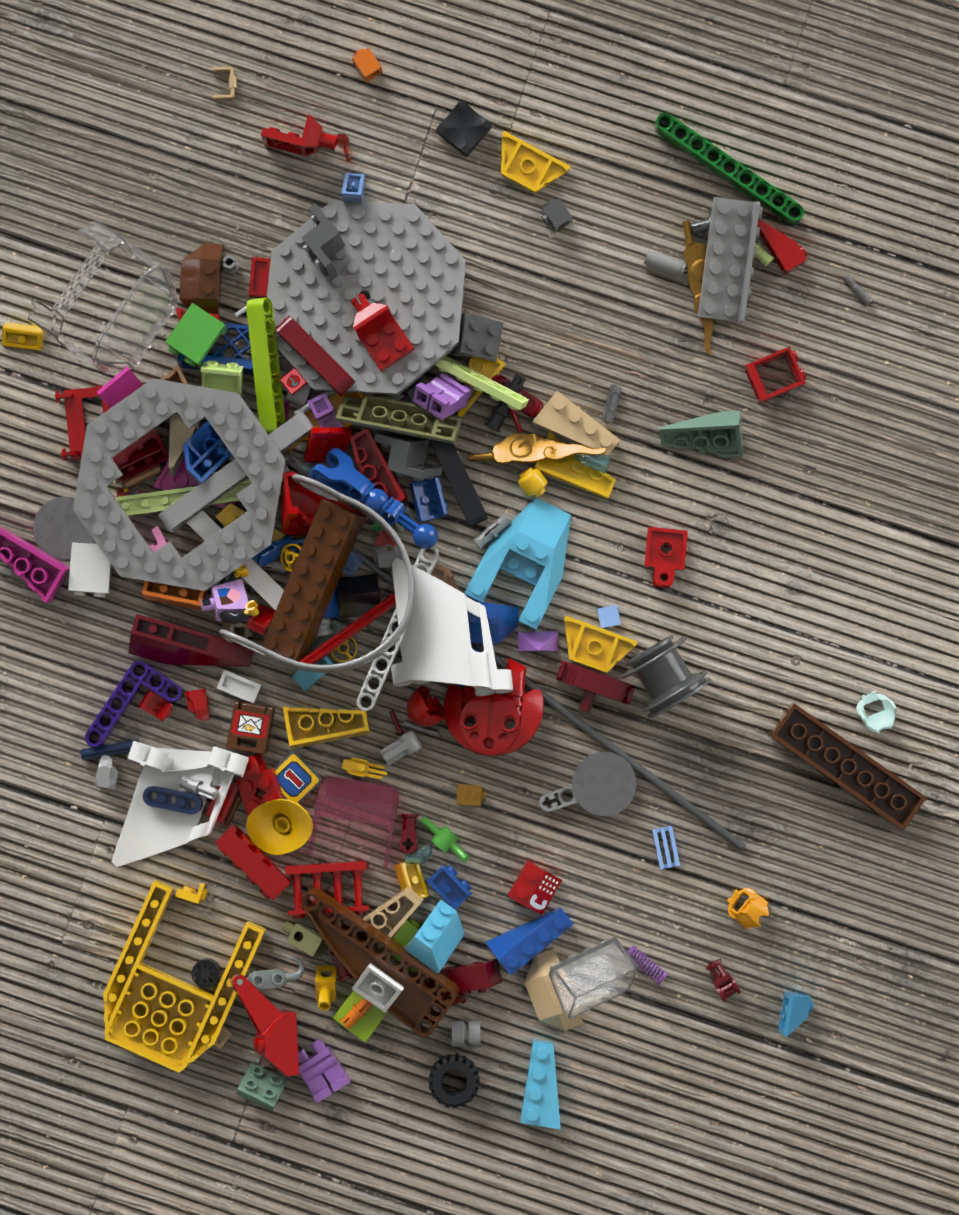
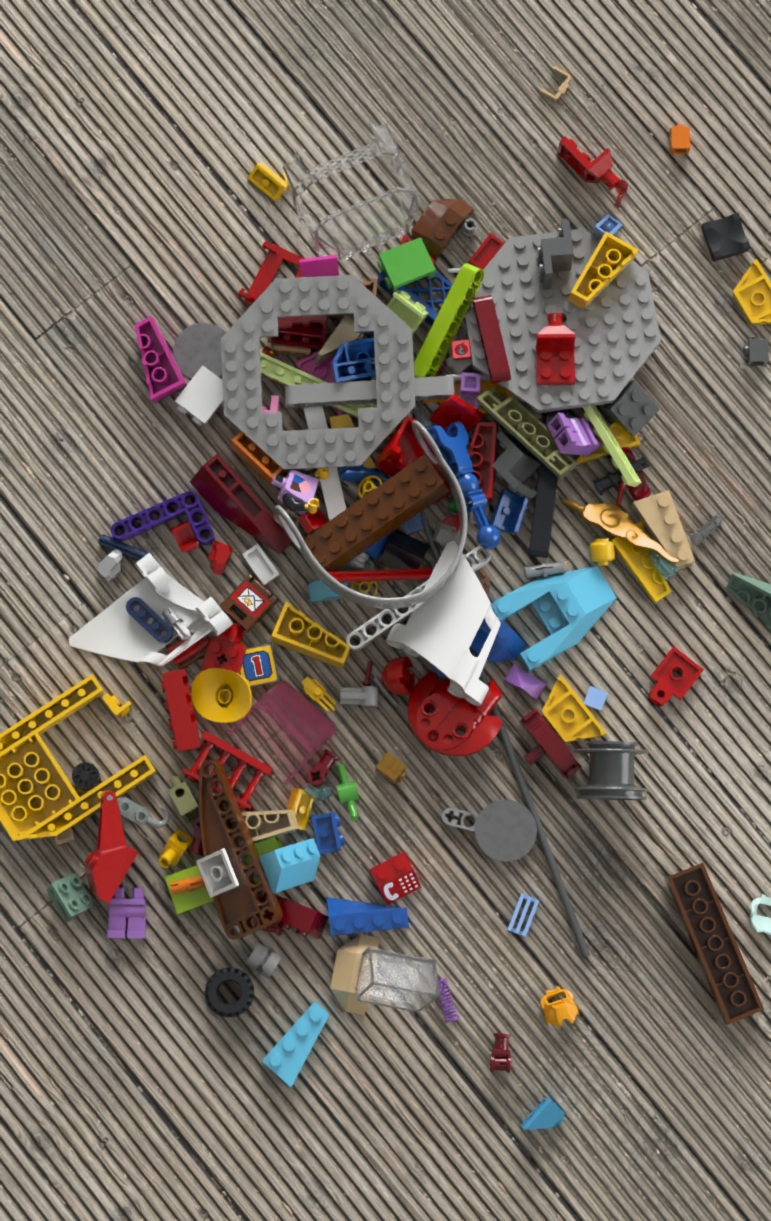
camera: 25 degrees right, 5 degrees down
(372, 225) = (604, 265): none -> yellow wedge

